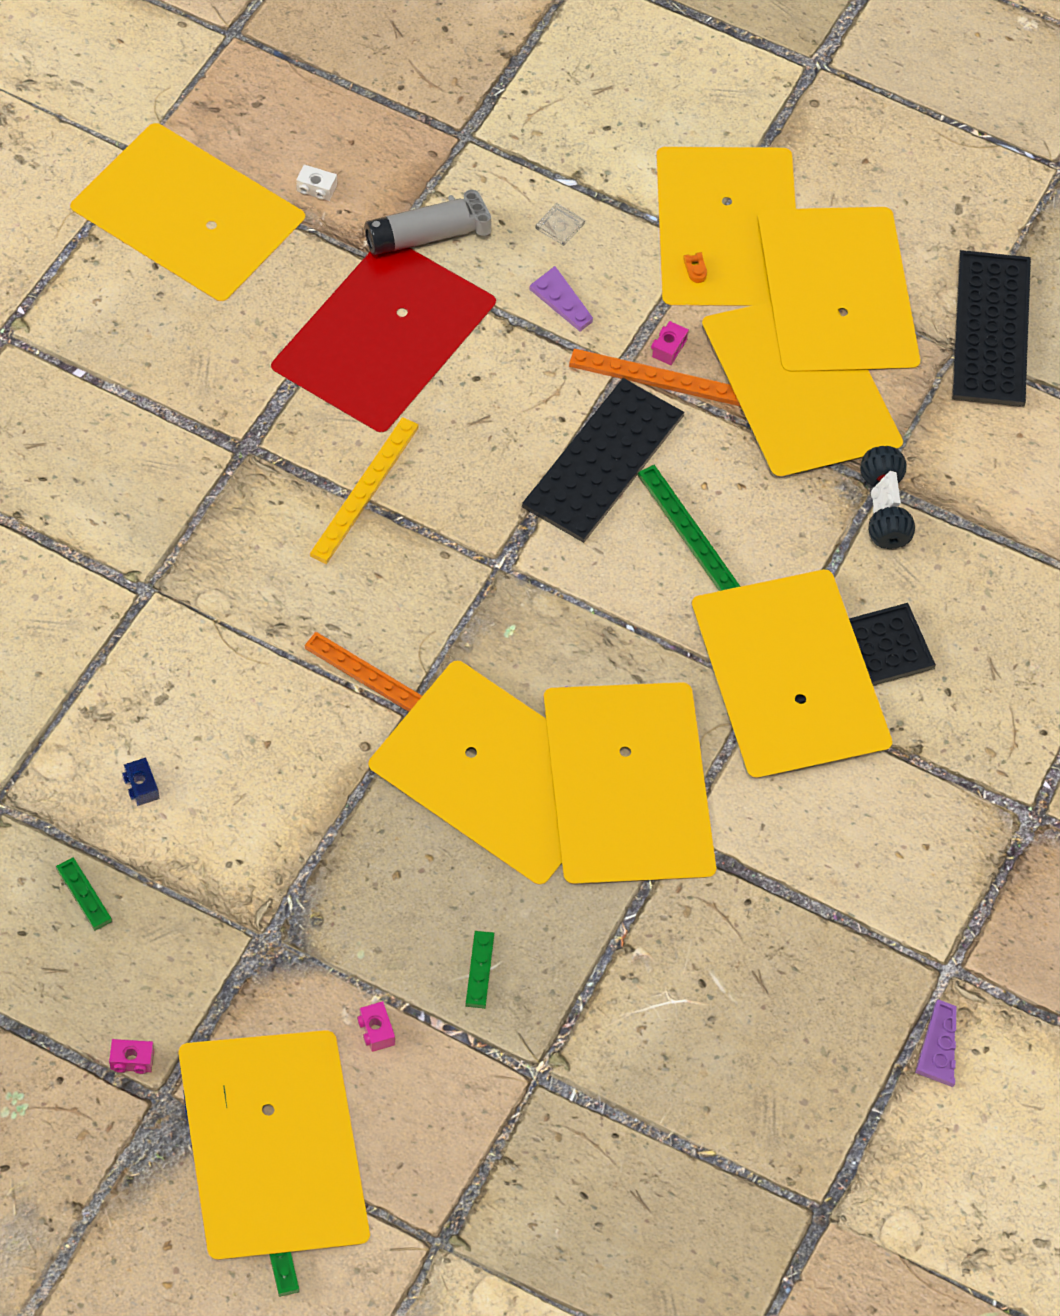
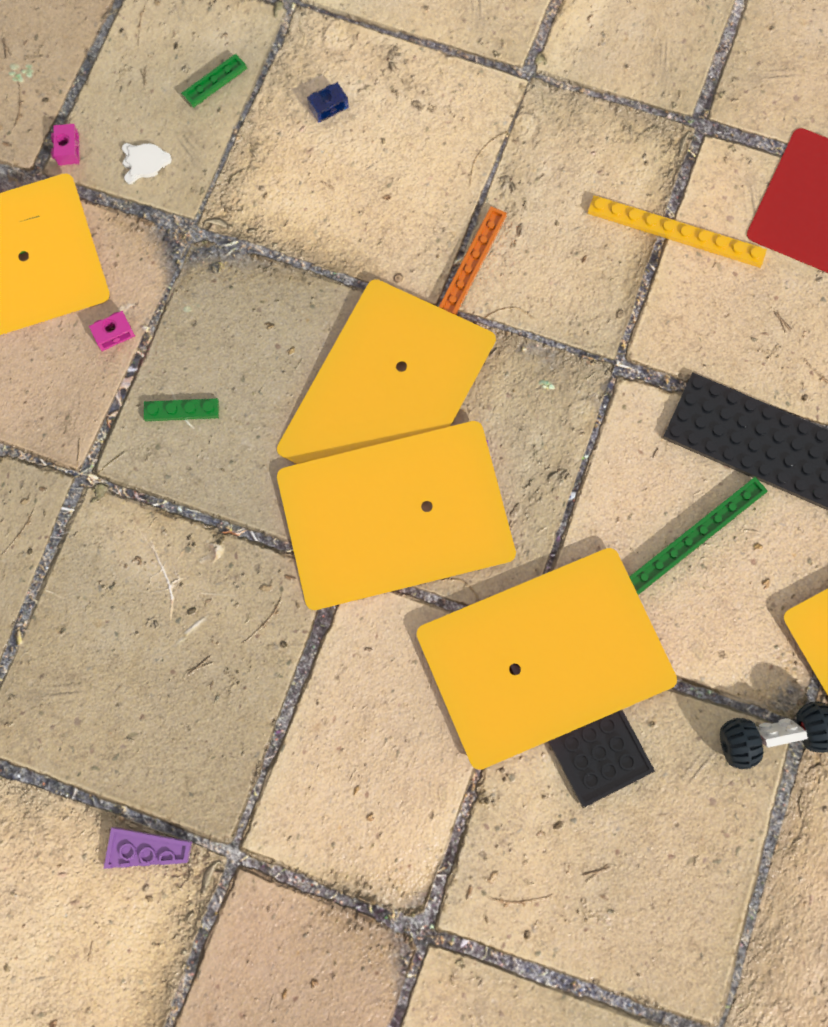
camera: 90 degrees right, 15 degrees up
(167, 978) = (144, 161): none -> white tile

